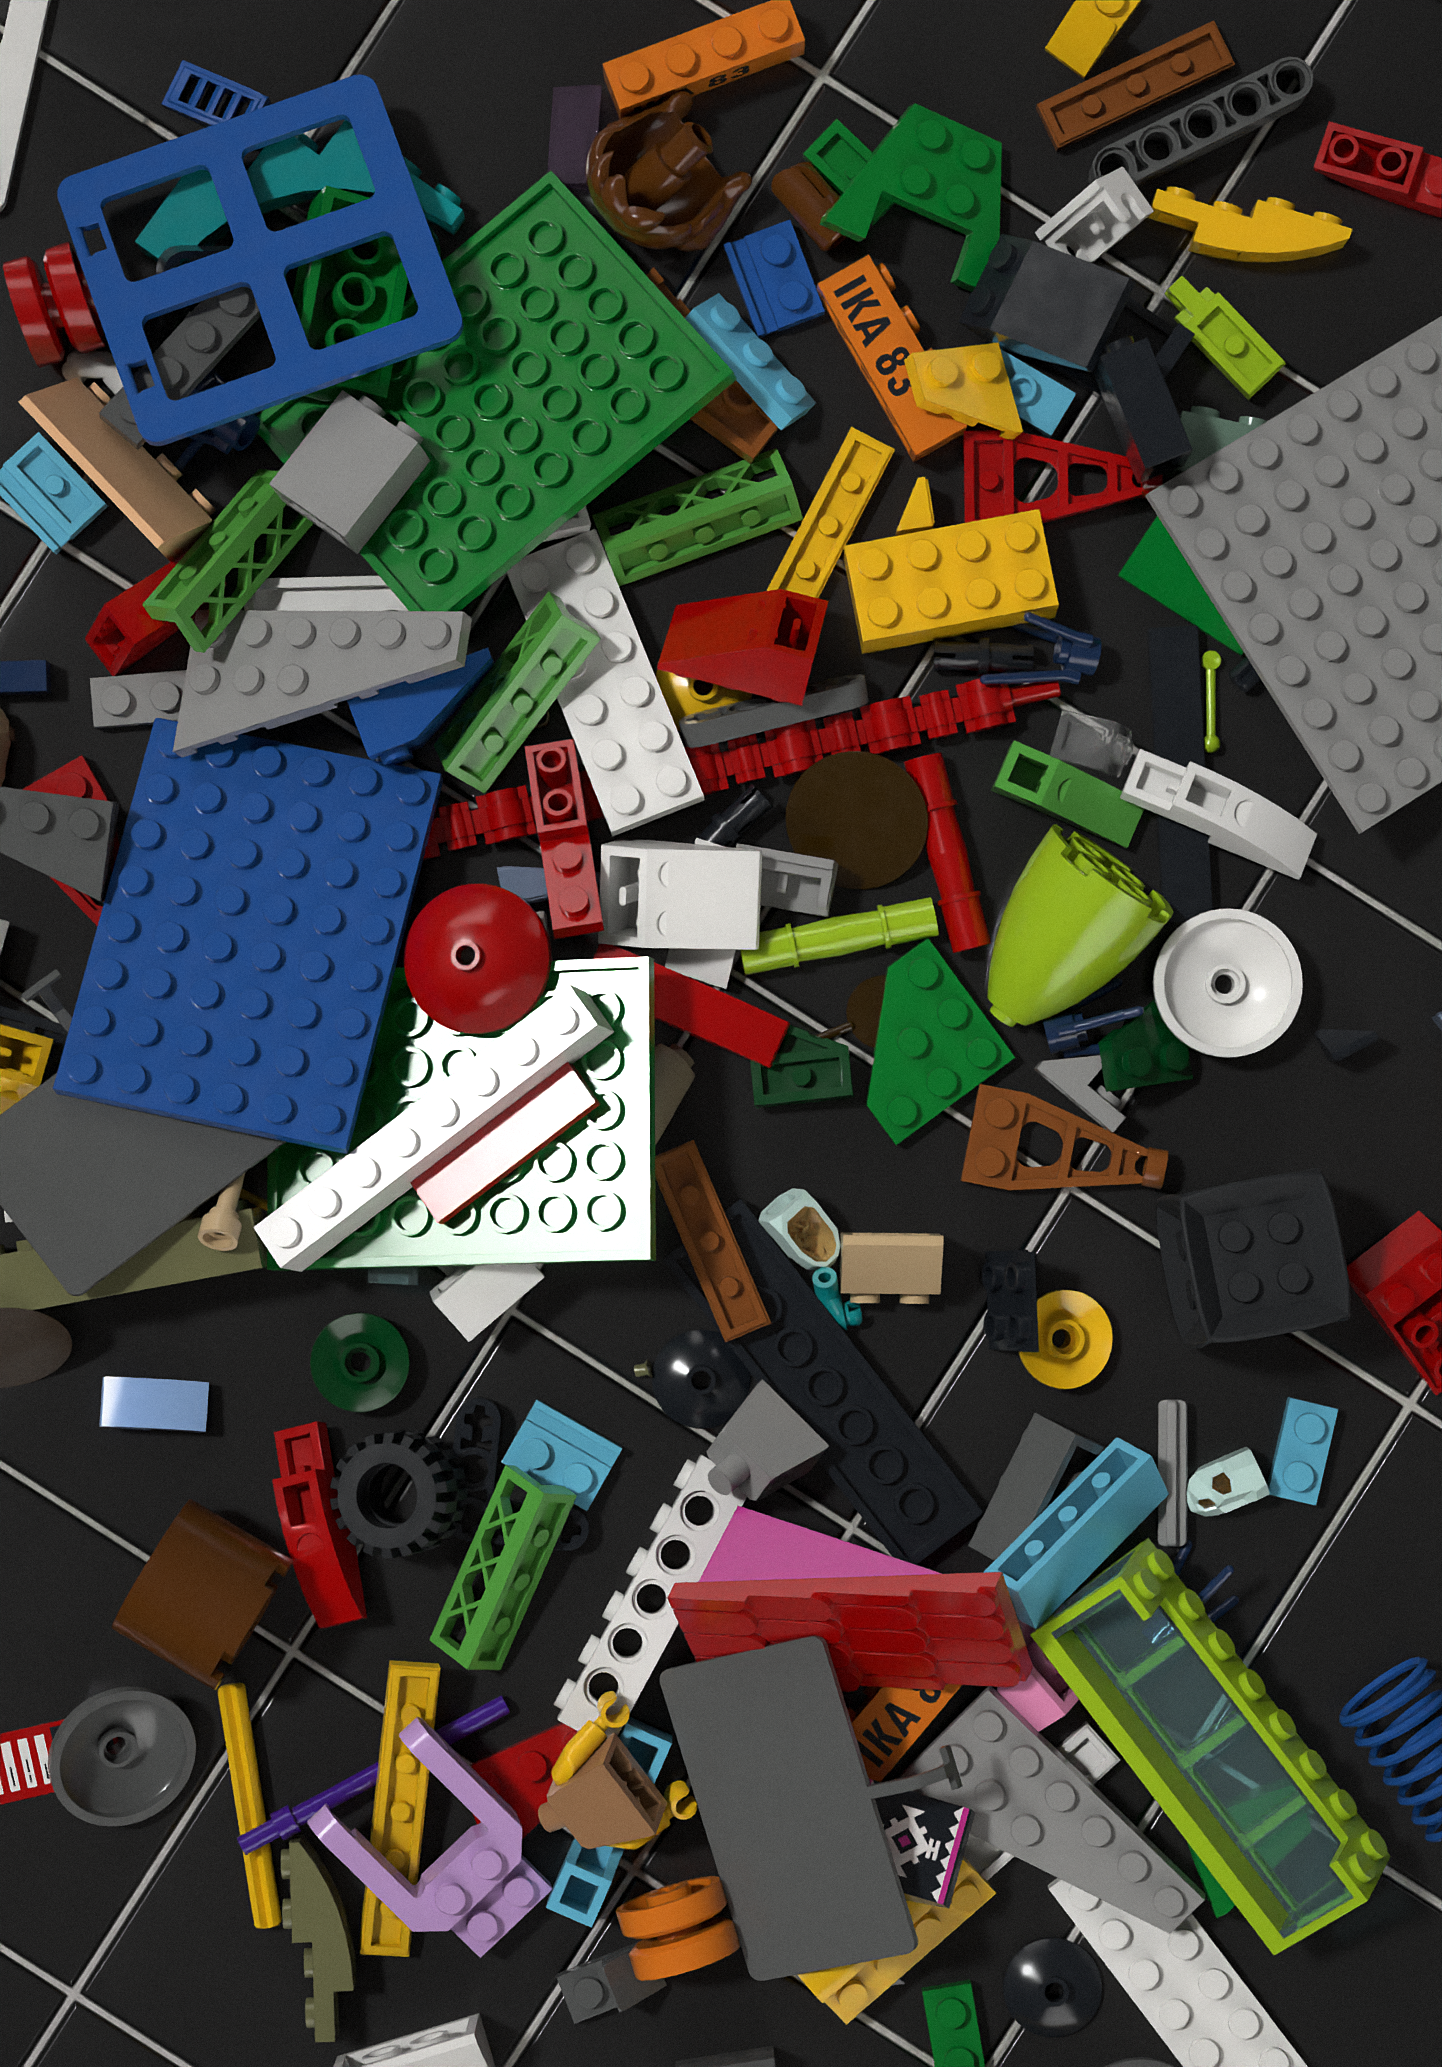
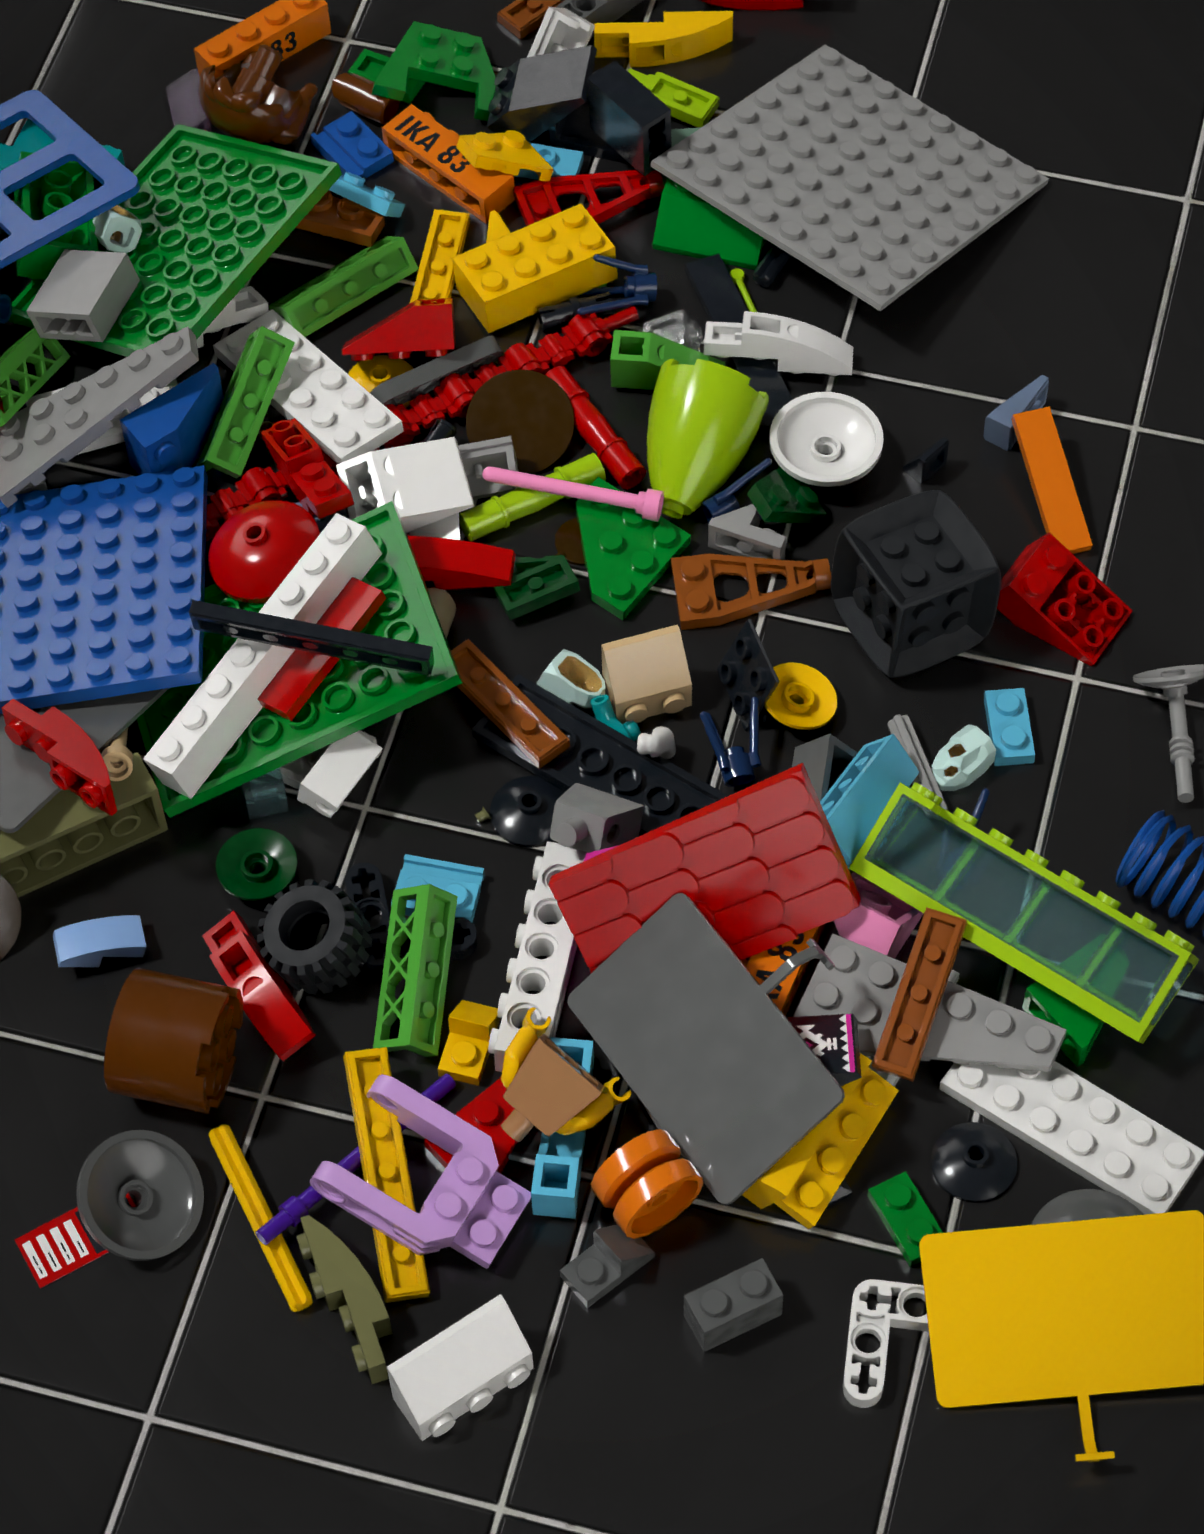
camera: 15 degrees left, 30 degrees down
(169, 1231) = (68, 750): none -> red slope
(424, 375) = (118, 229): none -> light aqua rock
(488, 1168) = (312, 637): none -> black tile
(542, 1662) = (468, 1042): none -> yellow slope
(873, 1361) = (658, 743): none -> white arm
(956, 1409) = (734, 762): none -> dark blue plant
(969, 1012) = (646, 503): none -> bright pink piece
(1055, 1810) = (919, 994): none -> dark orange tile

